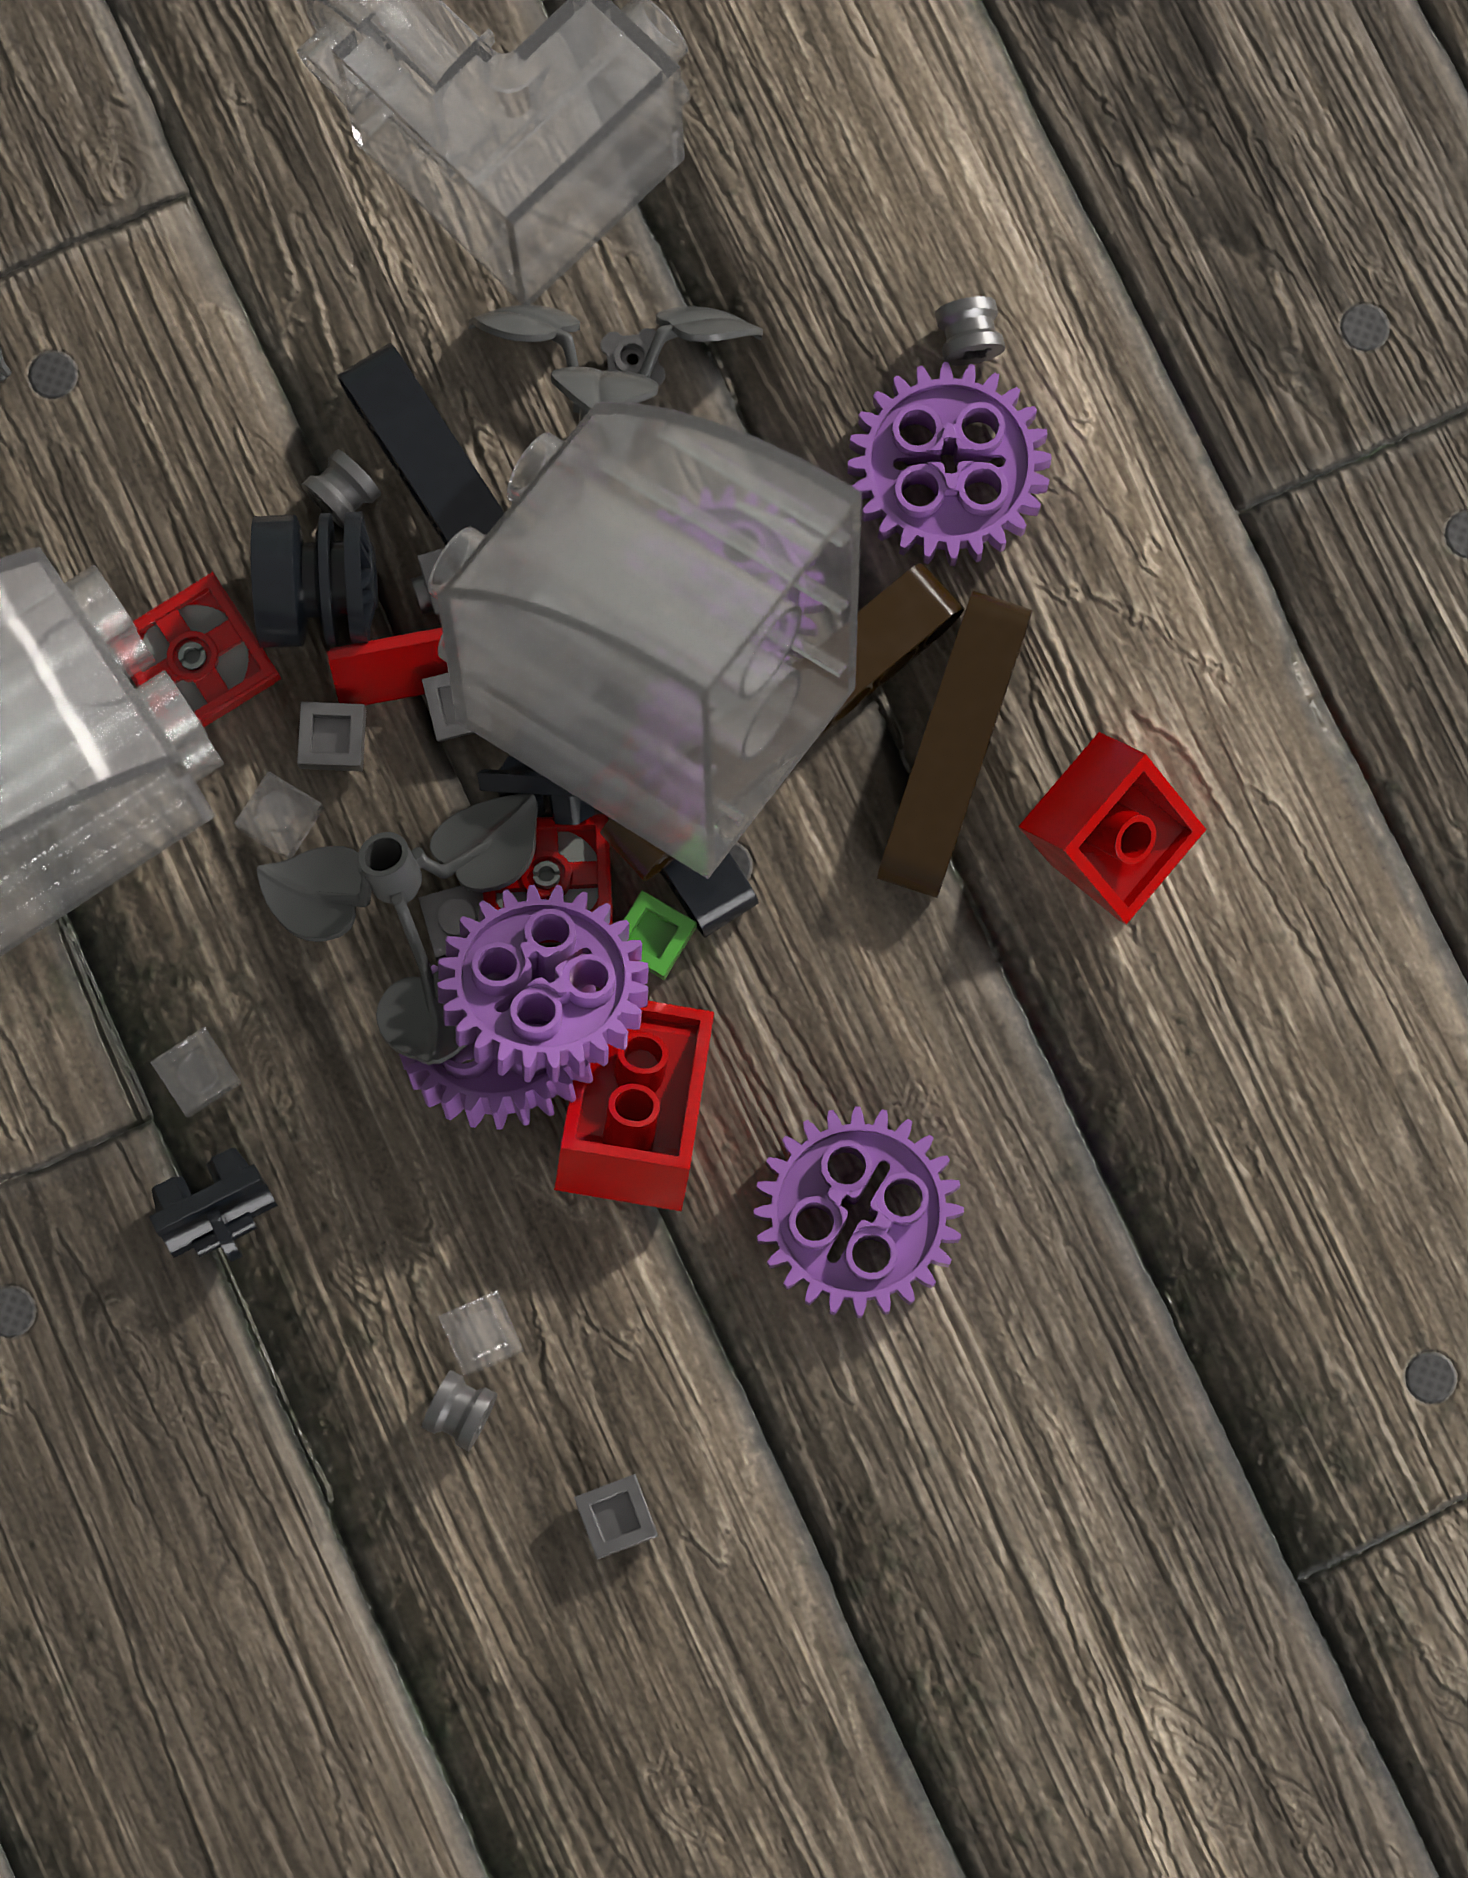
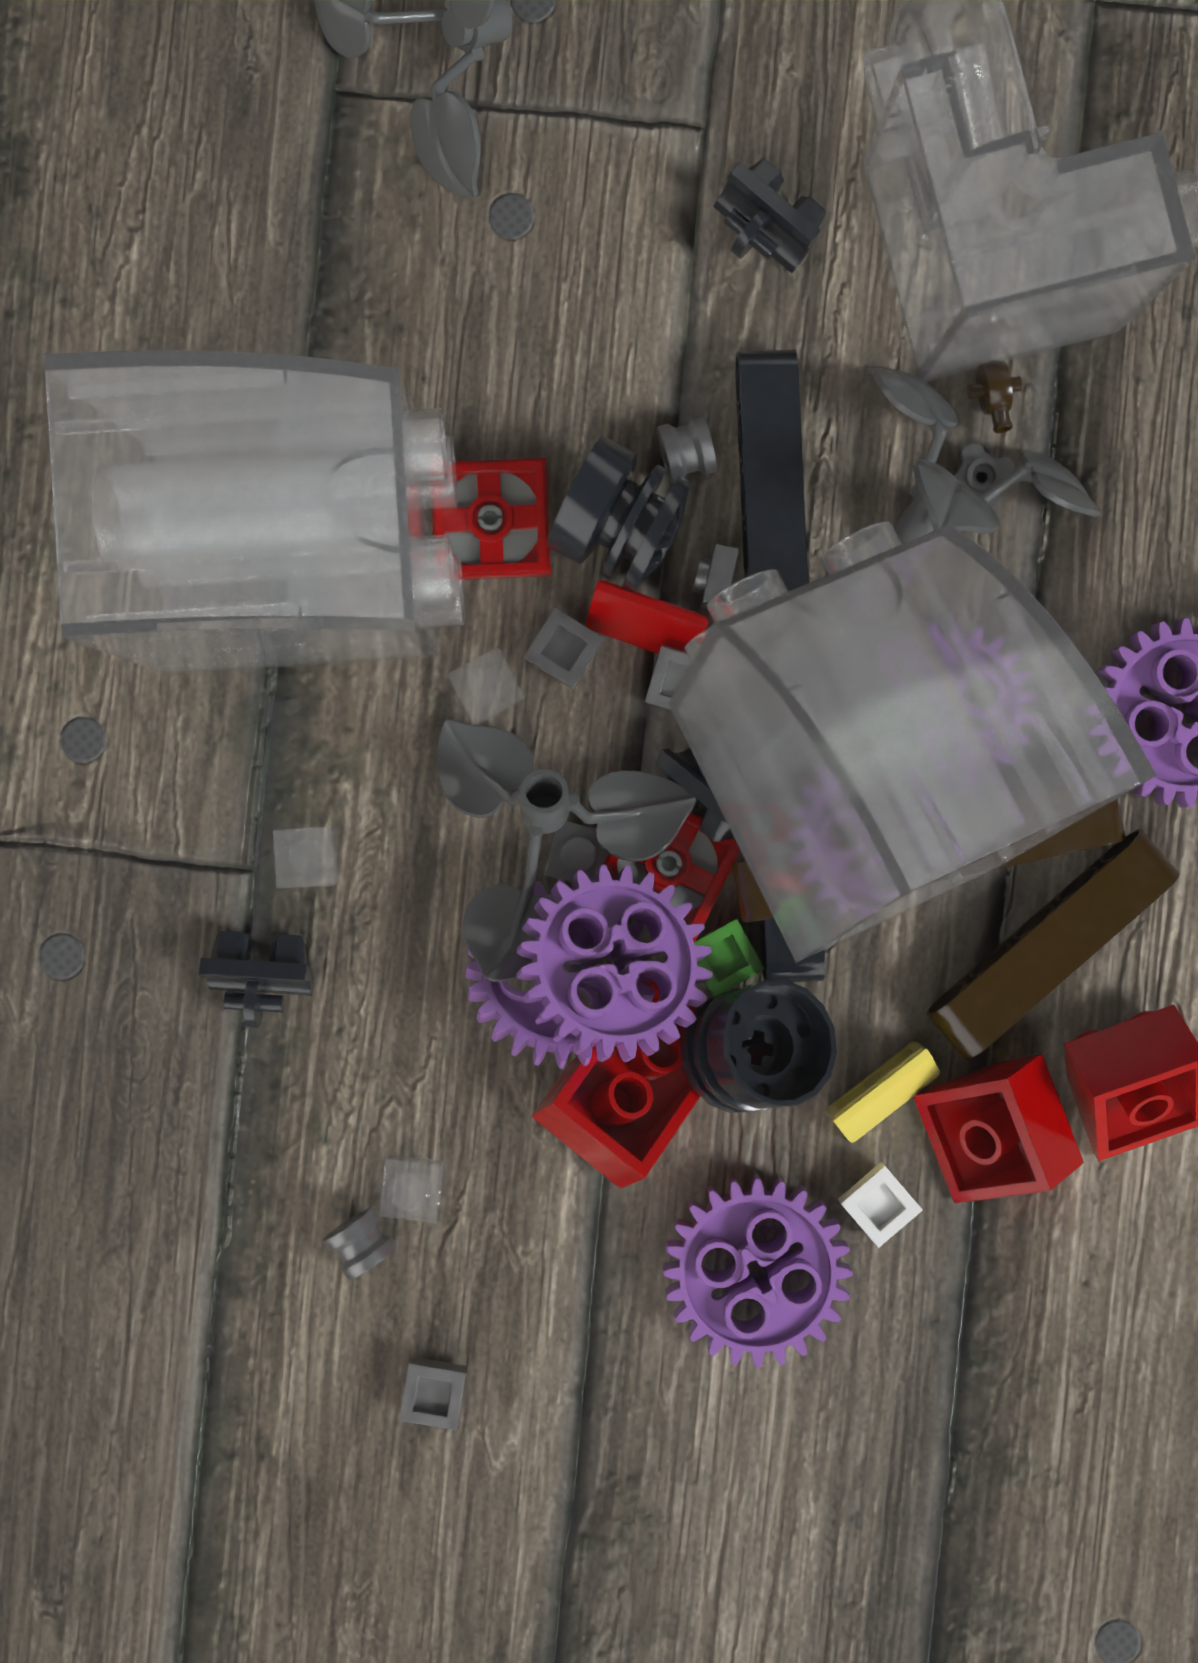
camera: 25 degrees right, 10 degrees up
(293, 242) = (766, 218): none -> black hips
(599, 277) = (995, 392): none -> dark brown piece
(727, 990) = (786, 1044): none -> black wheel
(882, 975) = (883, 1091): none -> light yellow slope
(939, 1082) = (880, 1204): none -> white plate
(1008, 945) = (1000, 1131): none -> red slope

